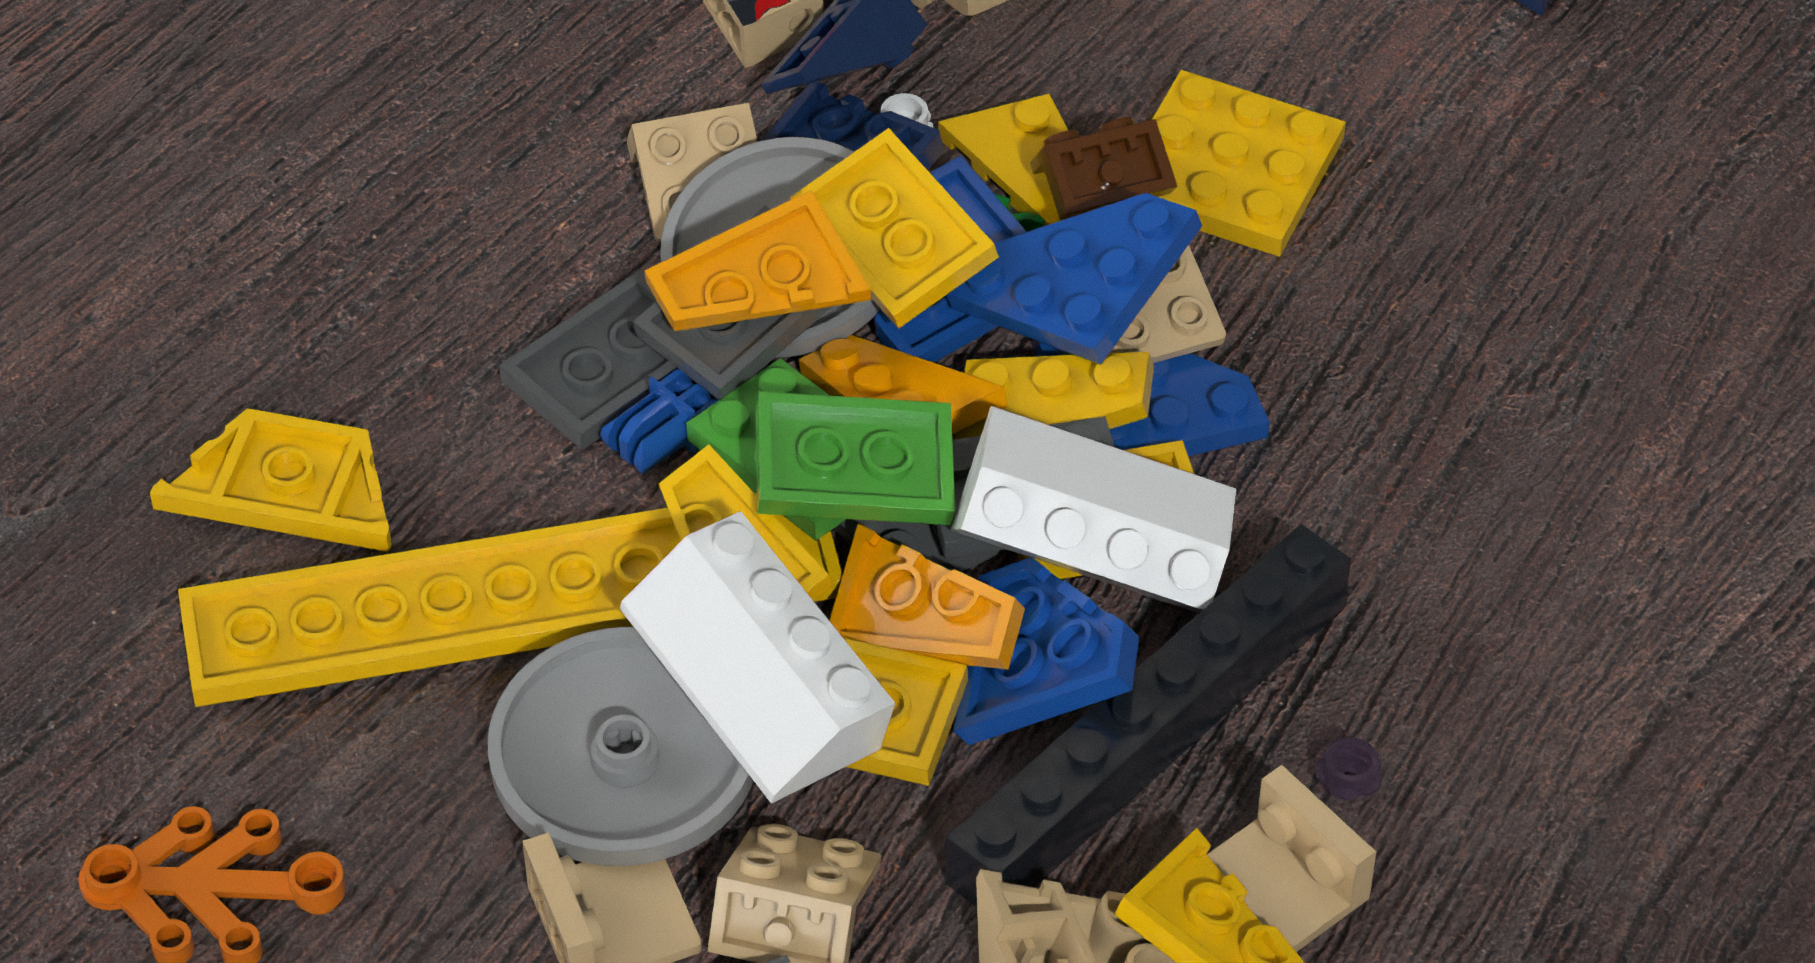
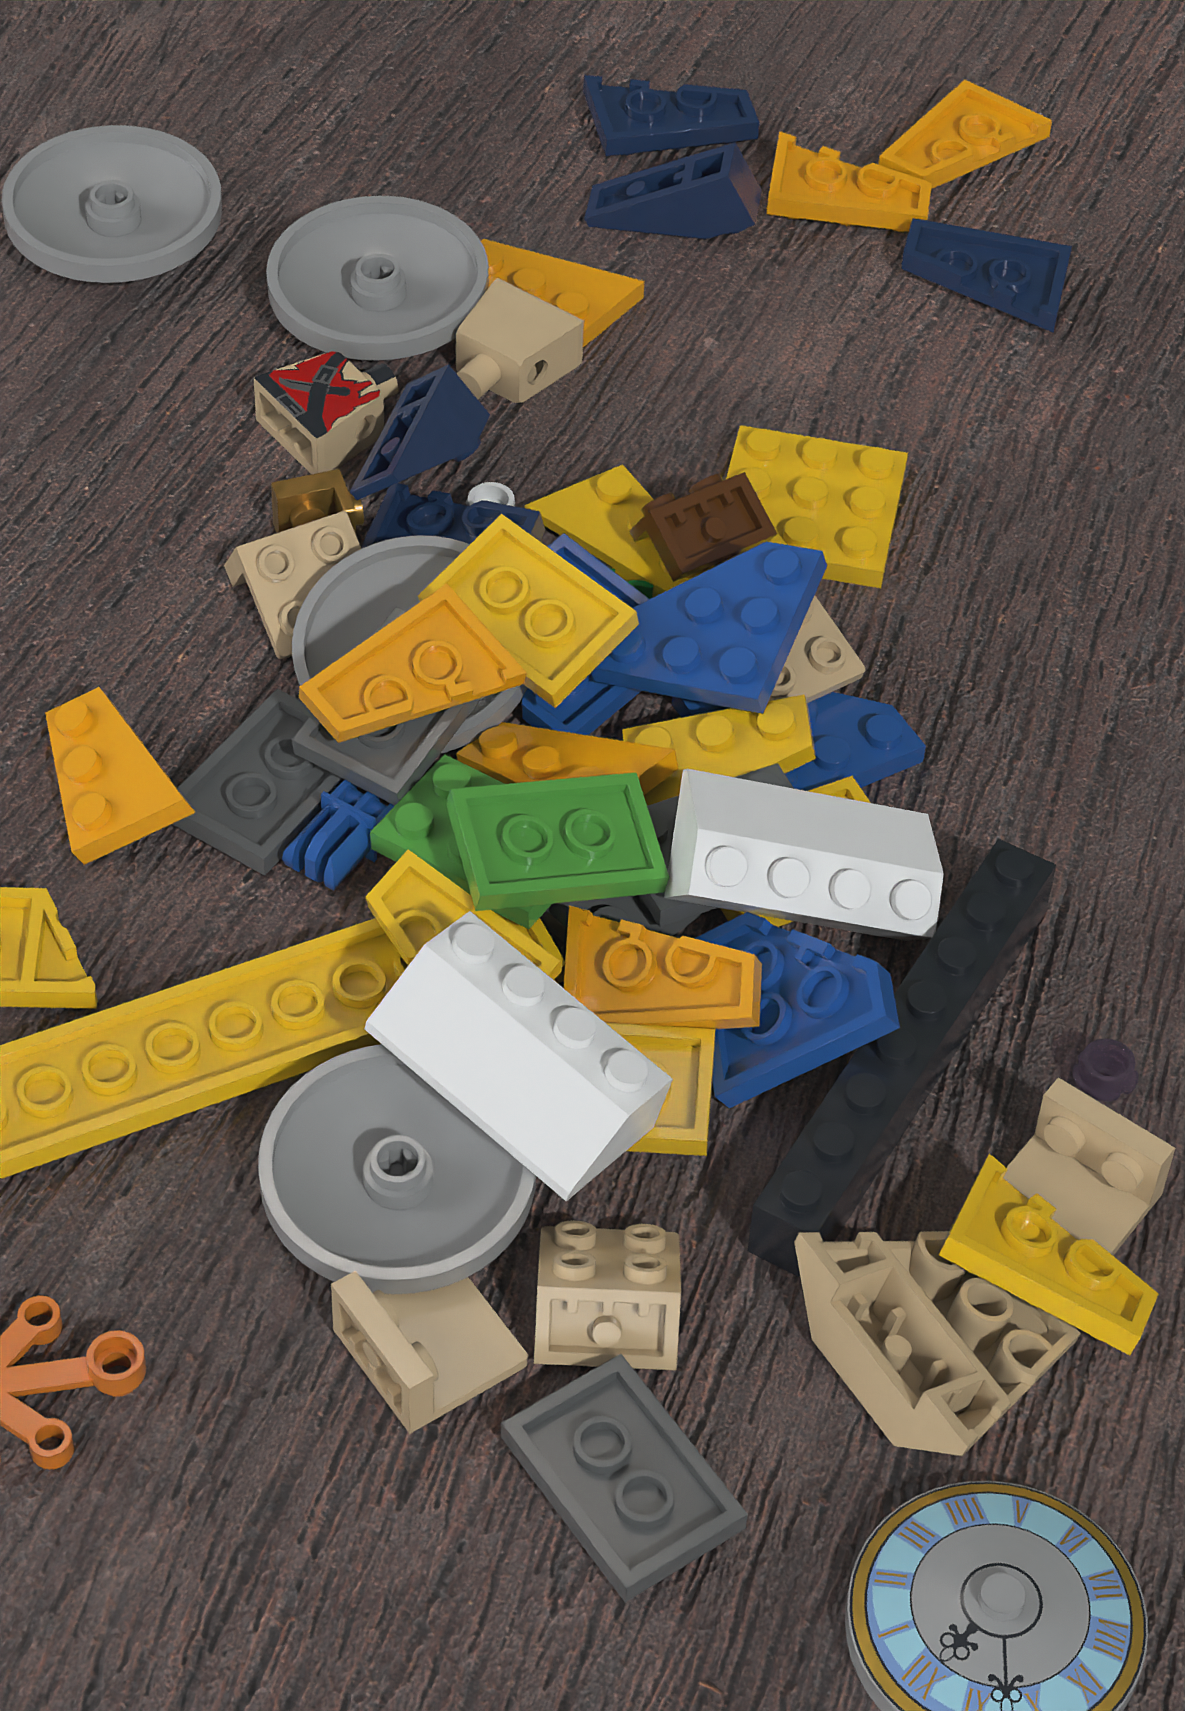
camera: 15 degrees left, 0 degrees up
(454, 332) = (108, 778): none -> light orange wing
(728, 85) = (313, 498): none -> pearl gold bracket

